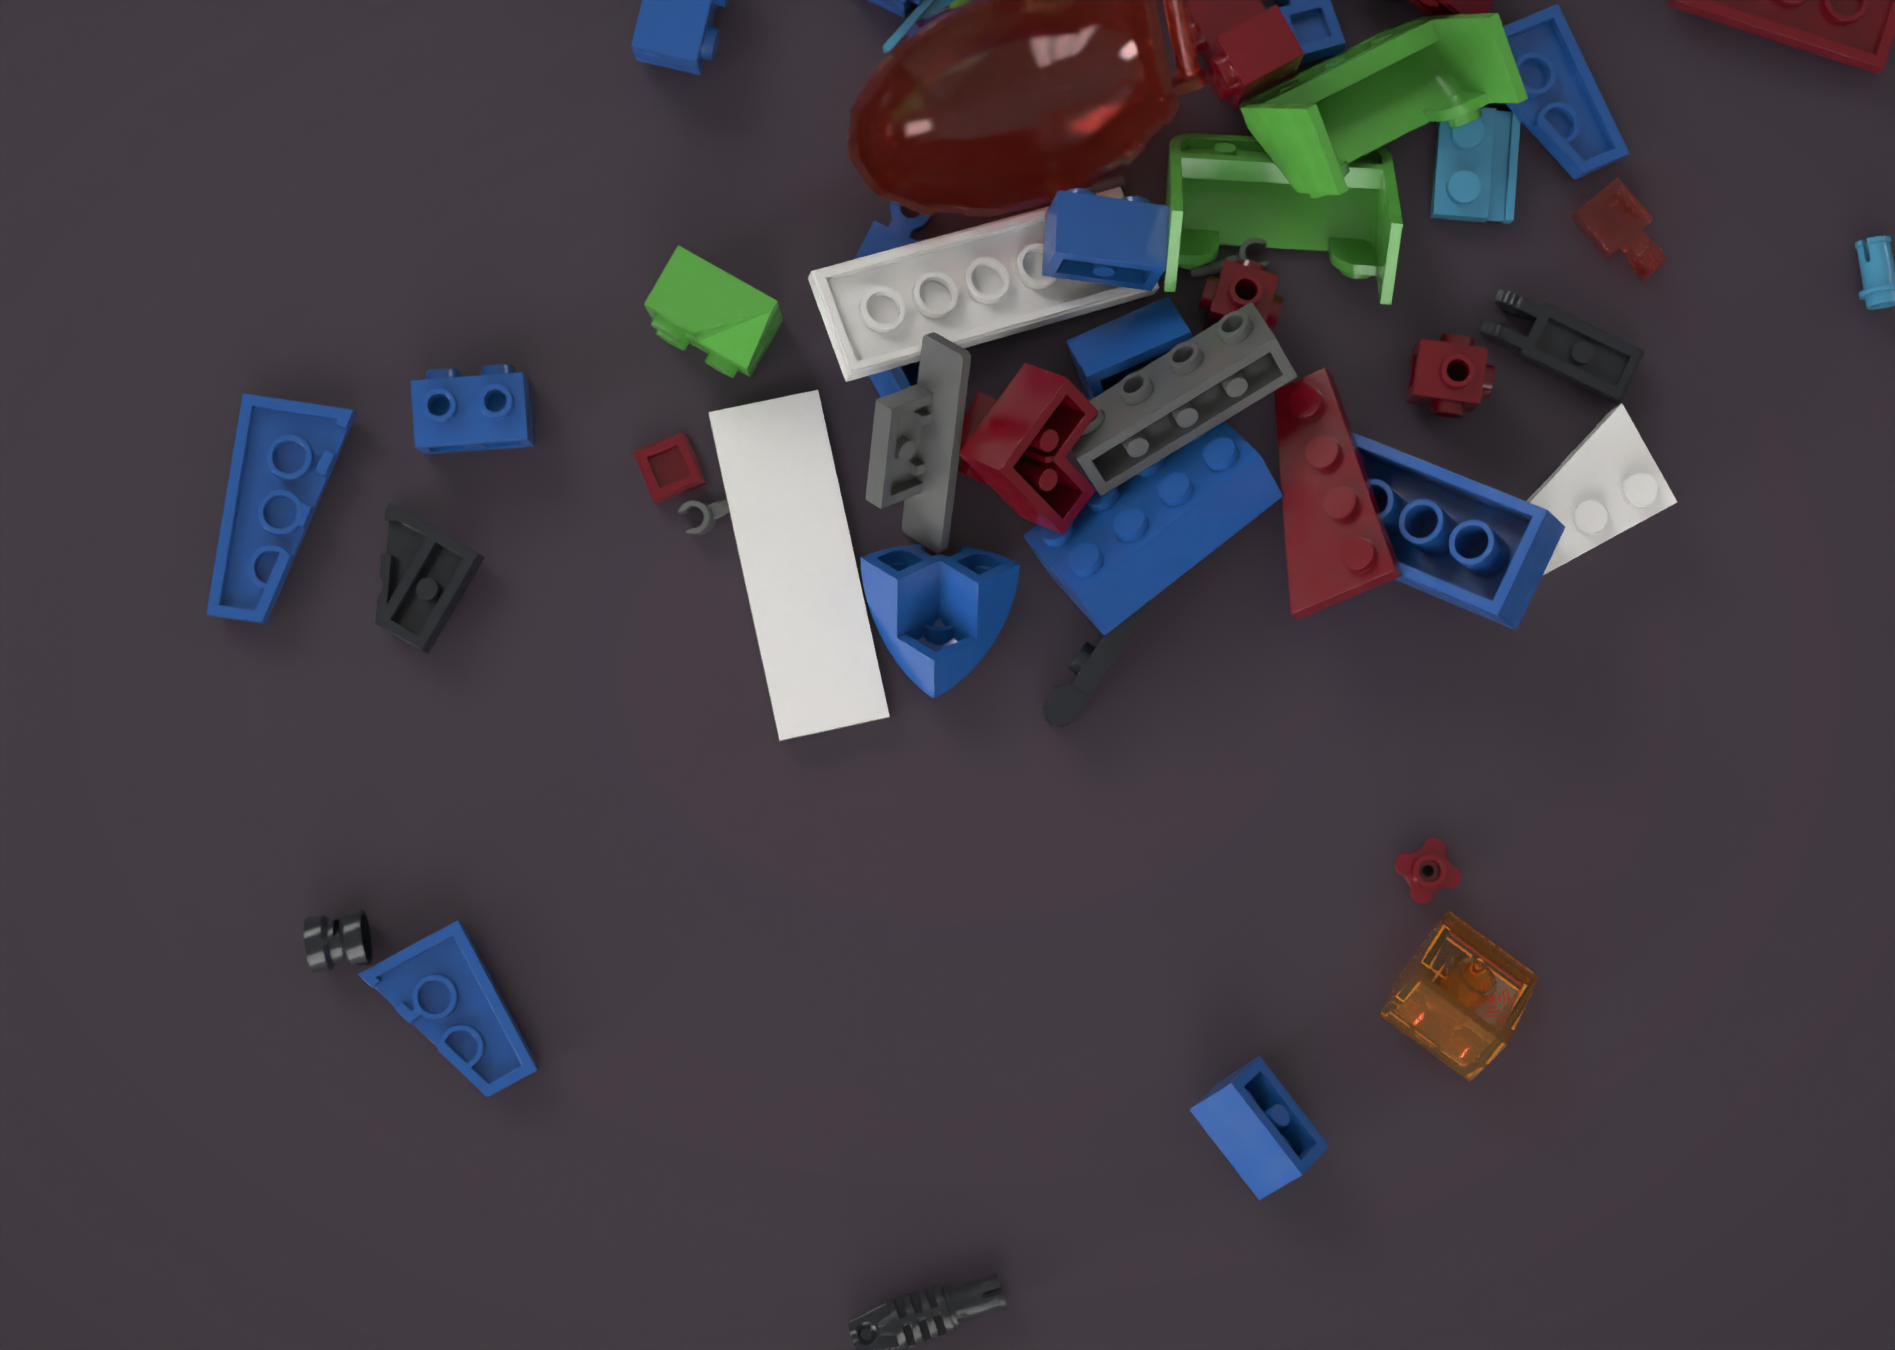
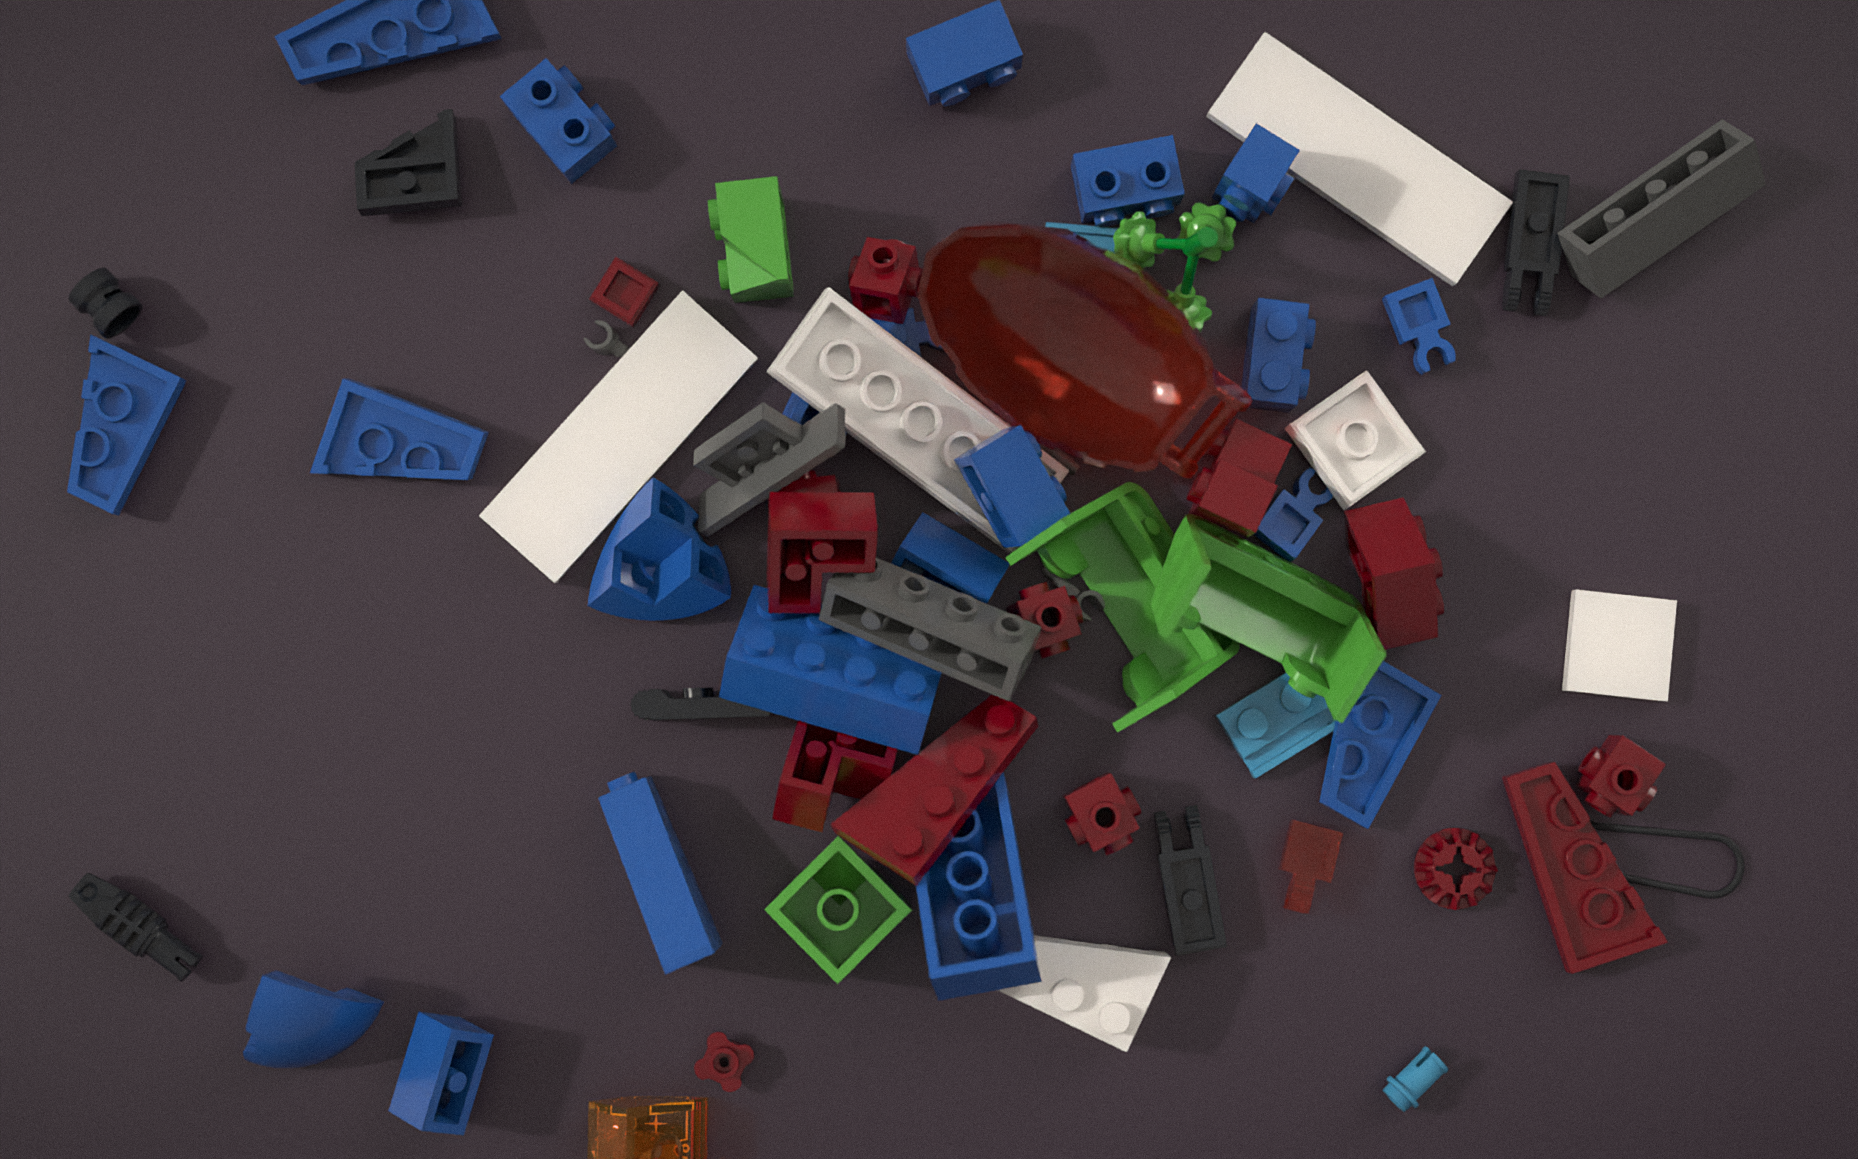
camera: 55 degrees right, 0 degrees up
(652, 766) = (393, 437): none -> blue wing
(832, 222) = (884, 279): none -> dark red brick
(1126, 1219) = (303, 1023): none -> blue brick
(1220, 804) = (659, 873): none -> blue slope
(1233, 585) = (826, 764): none -> dark red brick
(1367, 666) = (838, 908): none -> bright green slope
(1692, 104) = (1440, 850): none -> dark red gear

